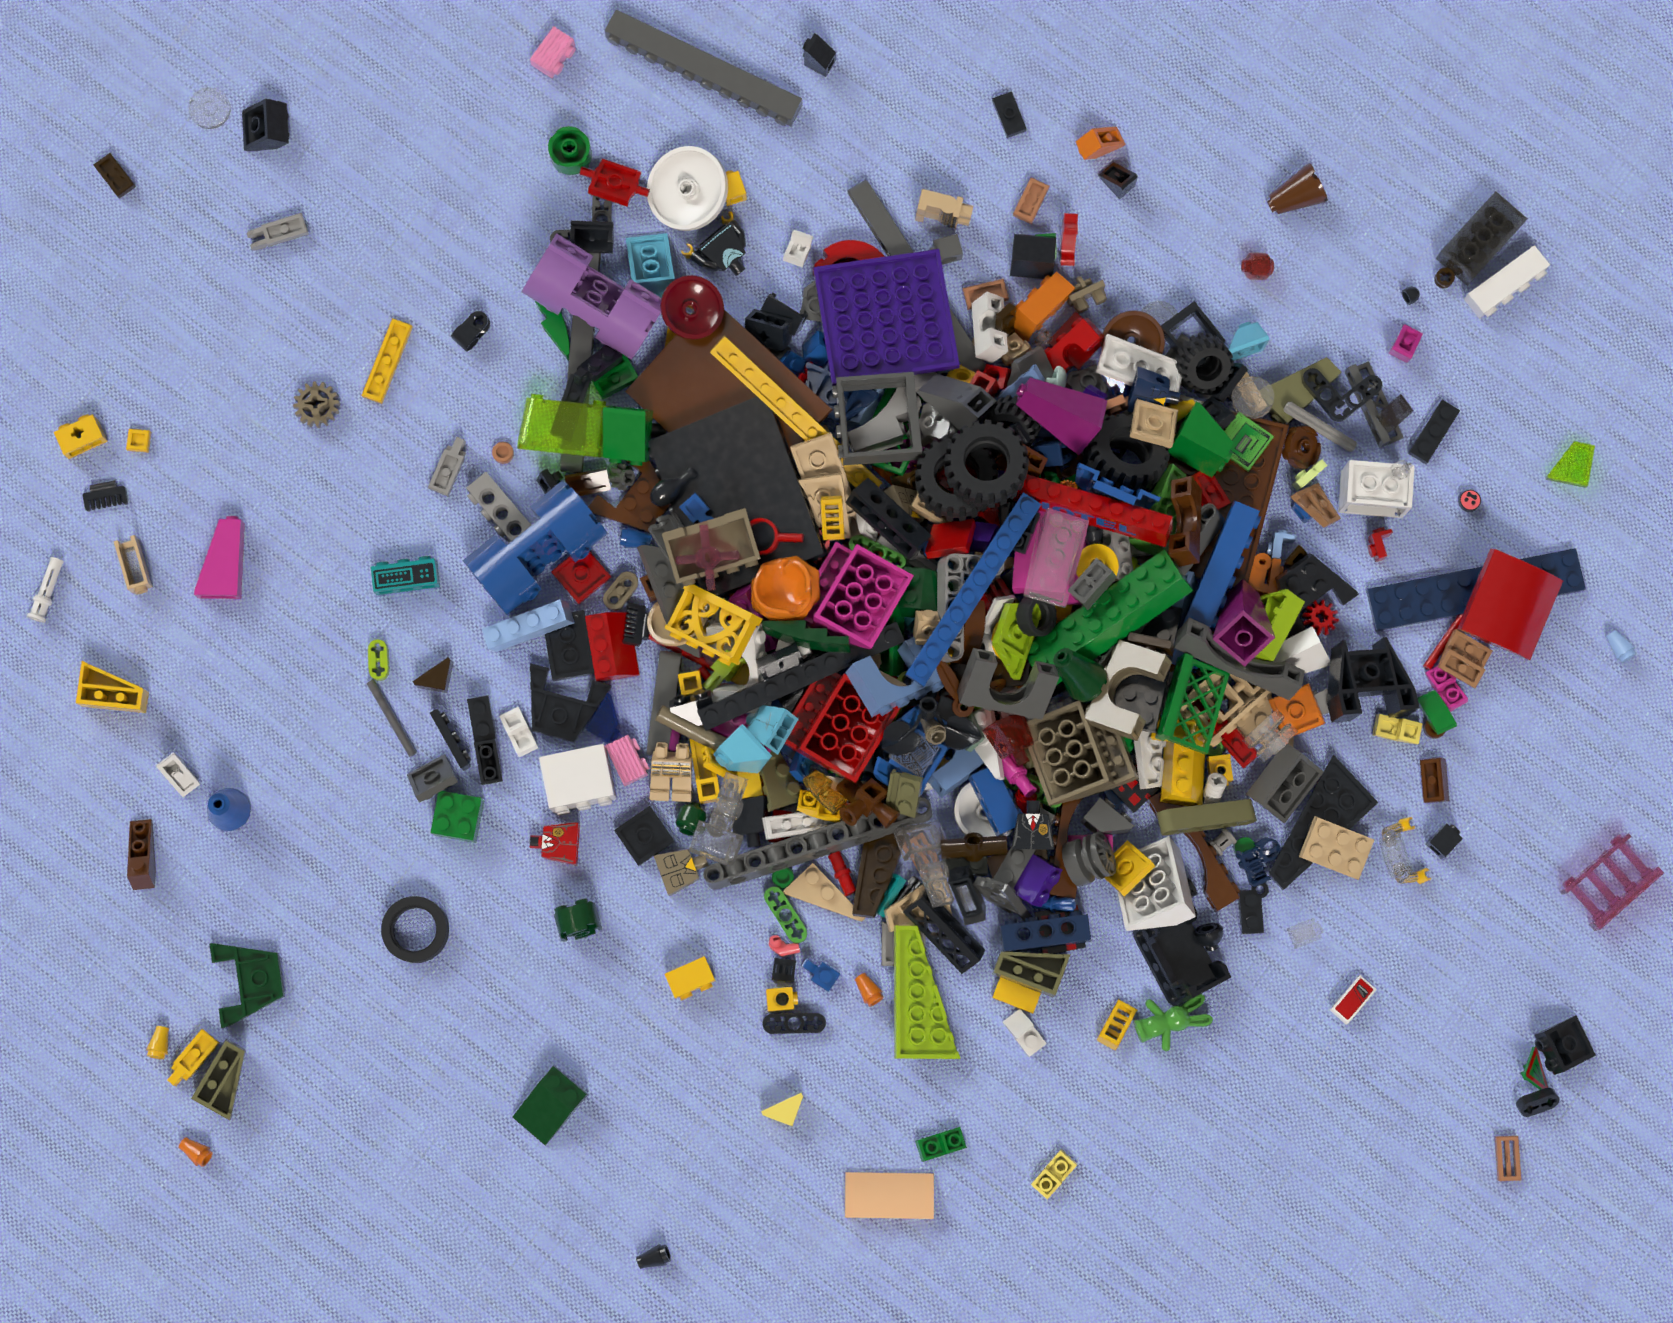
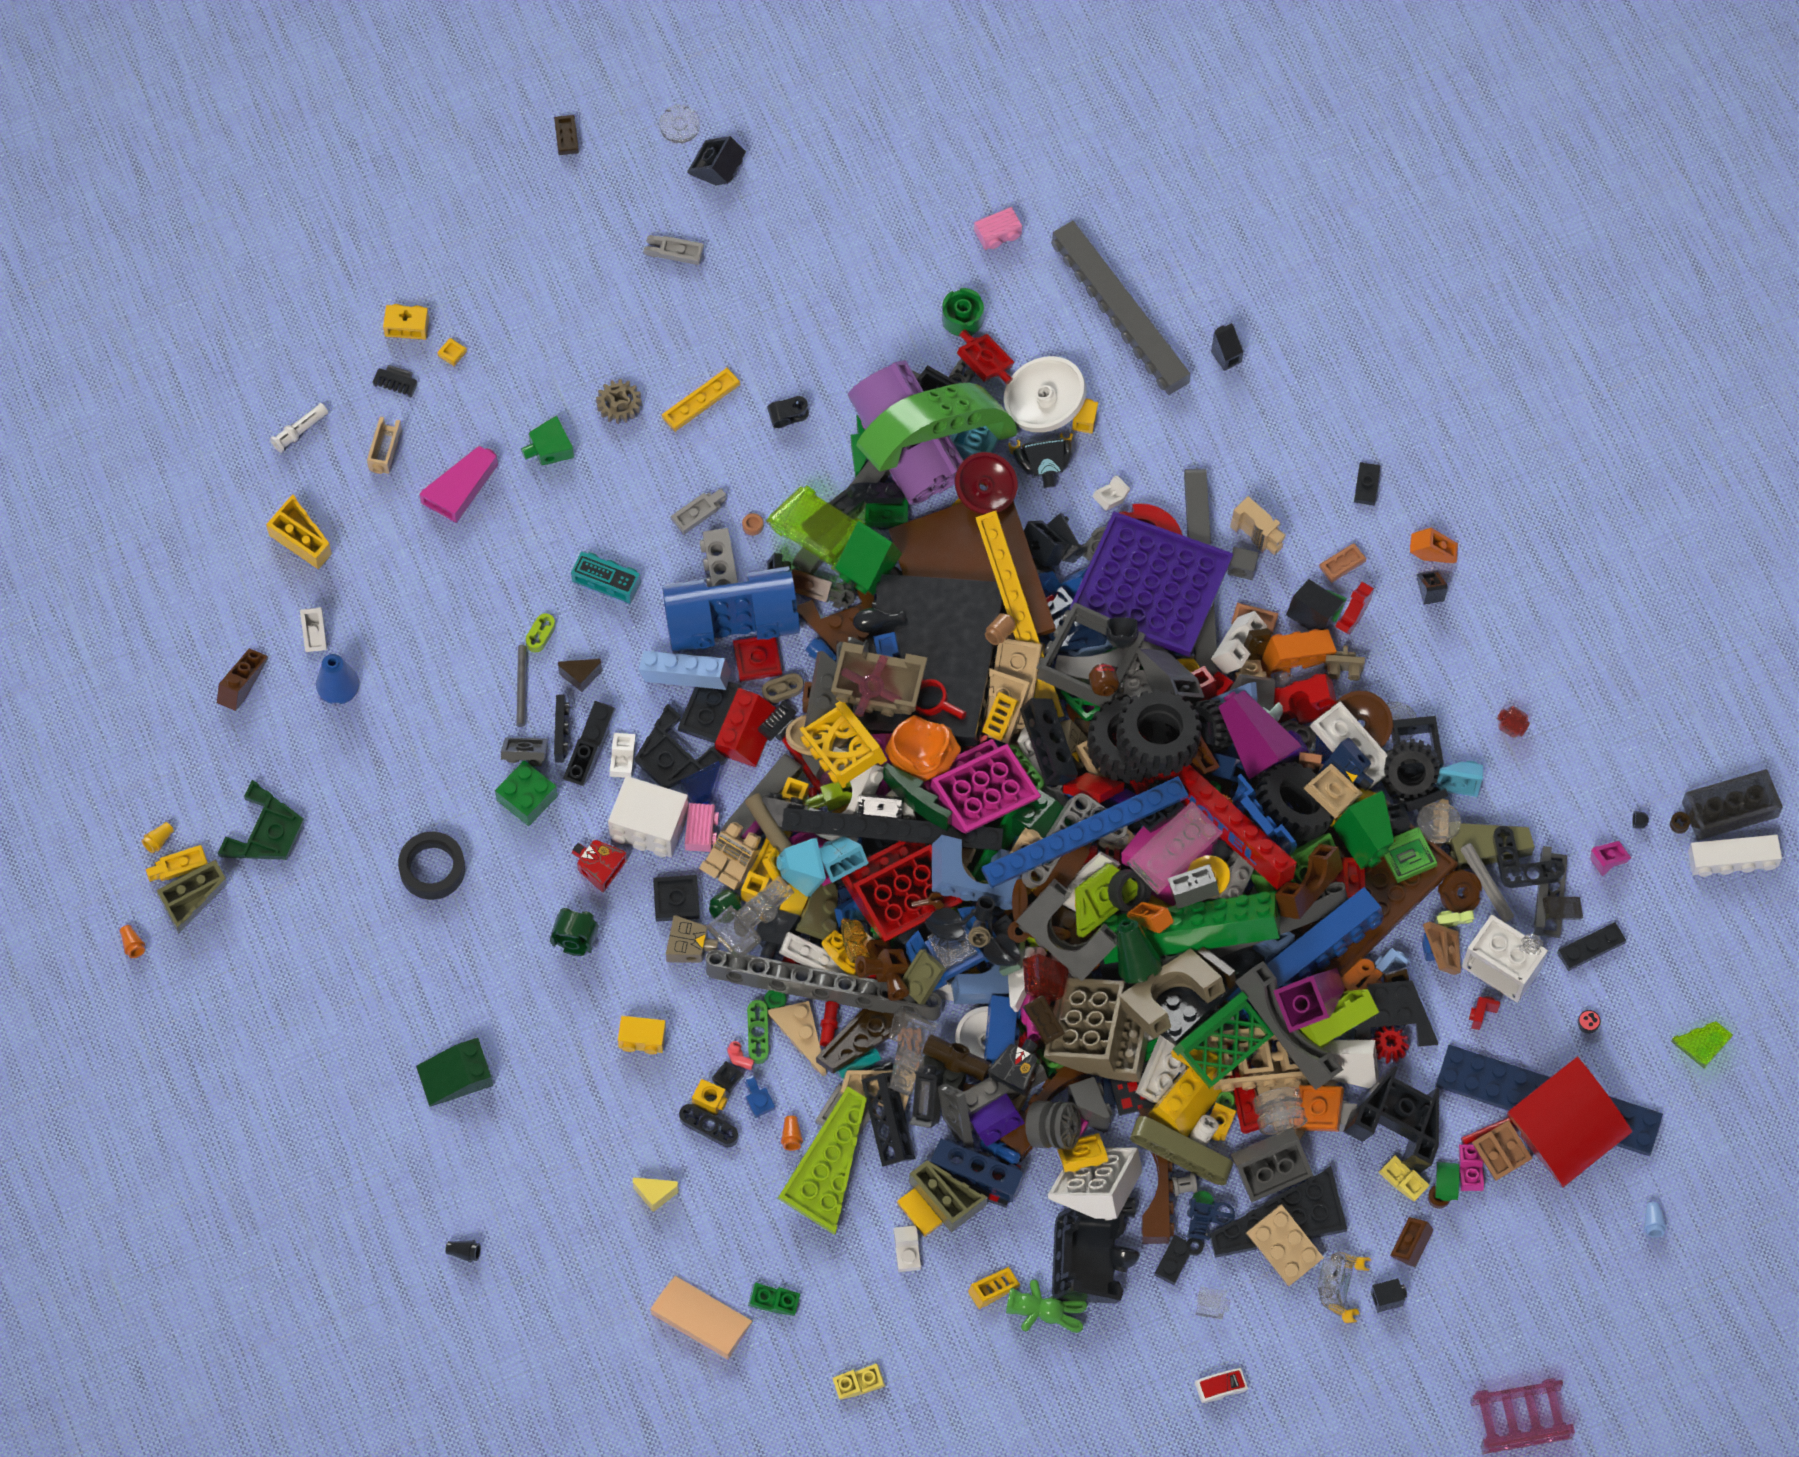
camera: 30 degrees right, 15 degrees down
(278, 479) = (548, 443): none -> green torso
(610, 276) = (930, 417): none -> bright green slope
(788, 440) = (1000, 629): none -> medium nougat brick
(875, 724) = (933, 899): none -> reddish brown hand
(895, 383) = (1122, 632): none -> black hair
(908, 439) = (1103, 679): none -> reddish brown head
(1032, 775) = (1043, 1020): none -> dark brown plate
(1072, 631) = (1151, 916): none -> orange slope
(1298, 192) = (1587, 679): reddish brown cone -> none

